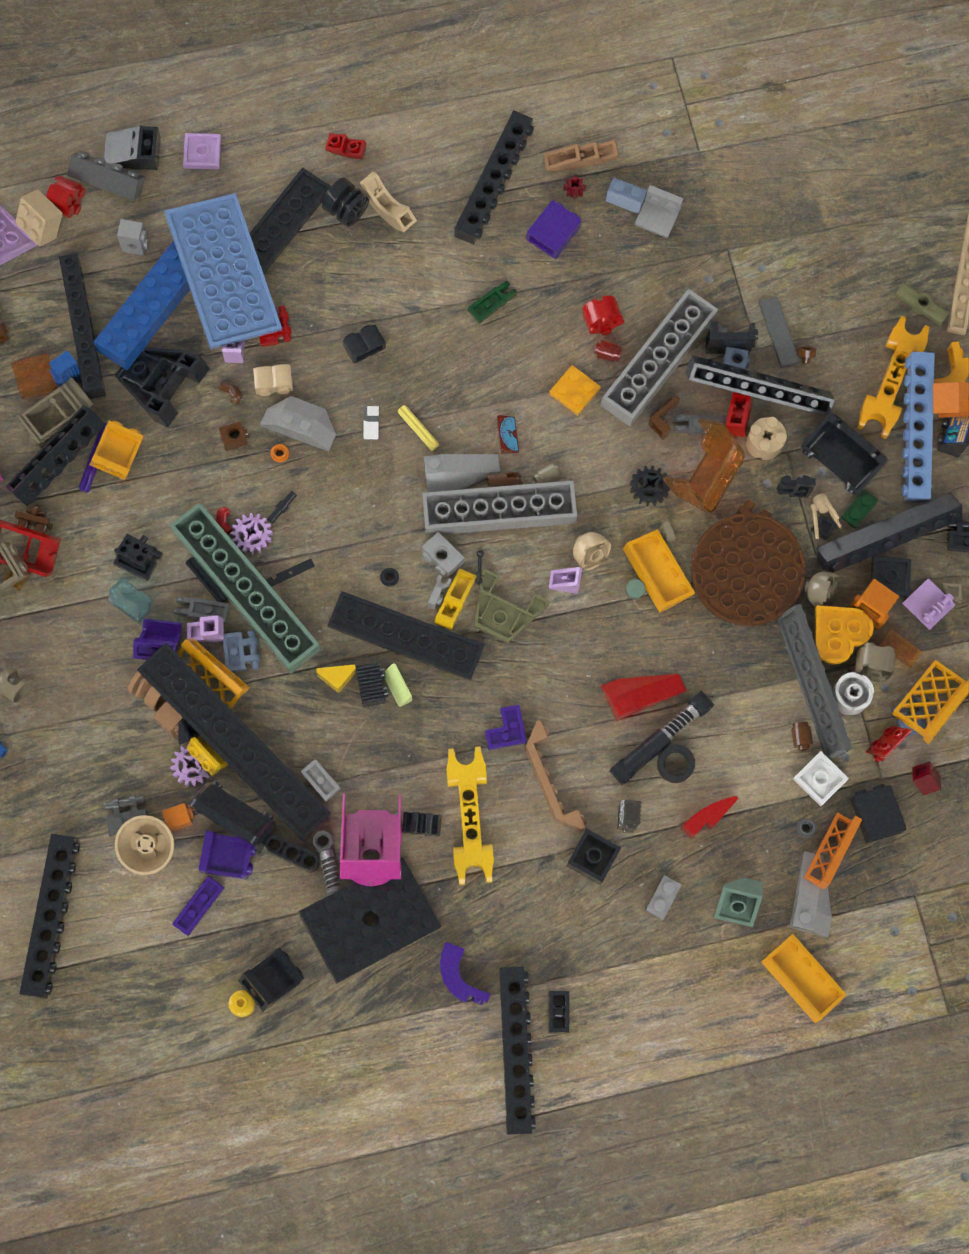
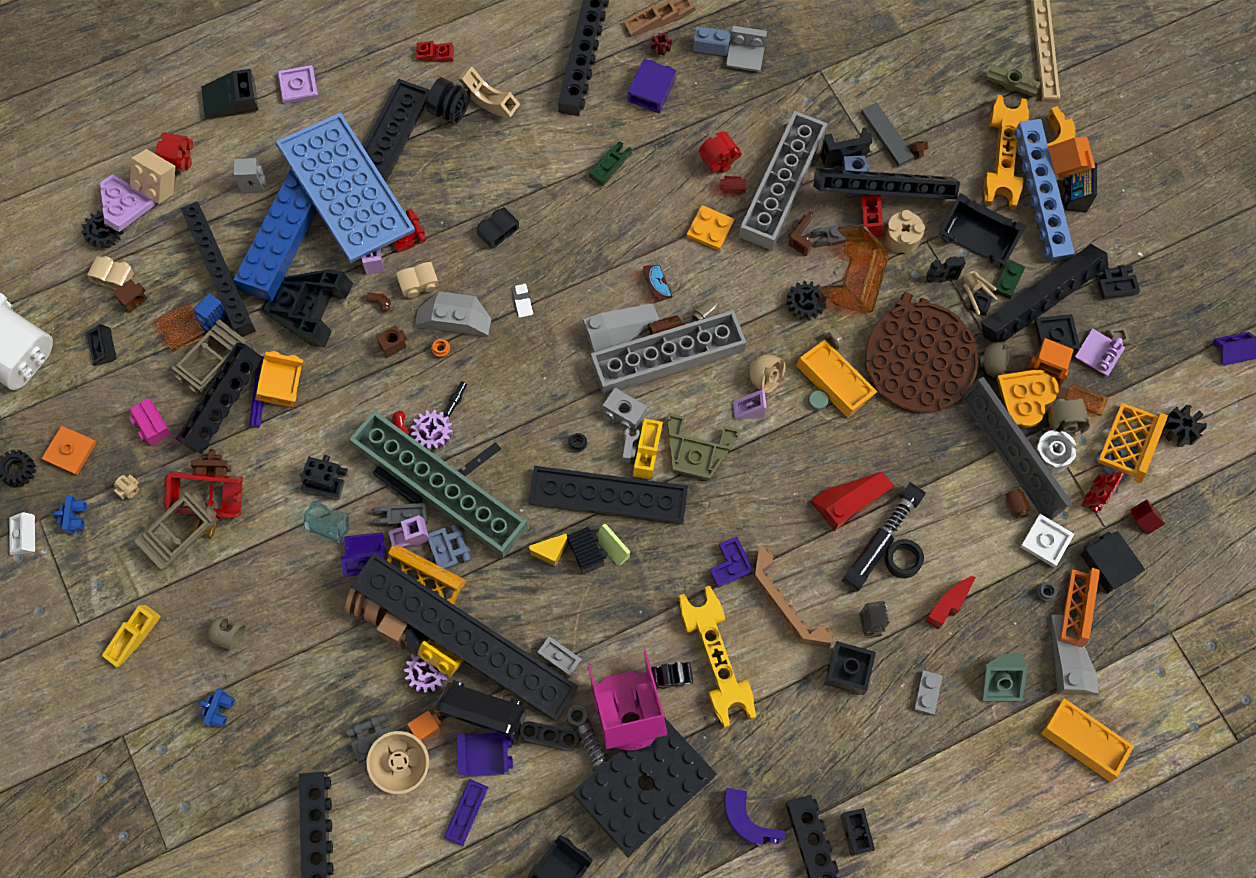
camera: 10 degrees left, 5 degrees down
(106, 175) = (209, 124): dark grey brick -> none
(418, 427) = (570, 295): light yellow axle -> none
(478, 580) = (666, 425): black hinge -> none

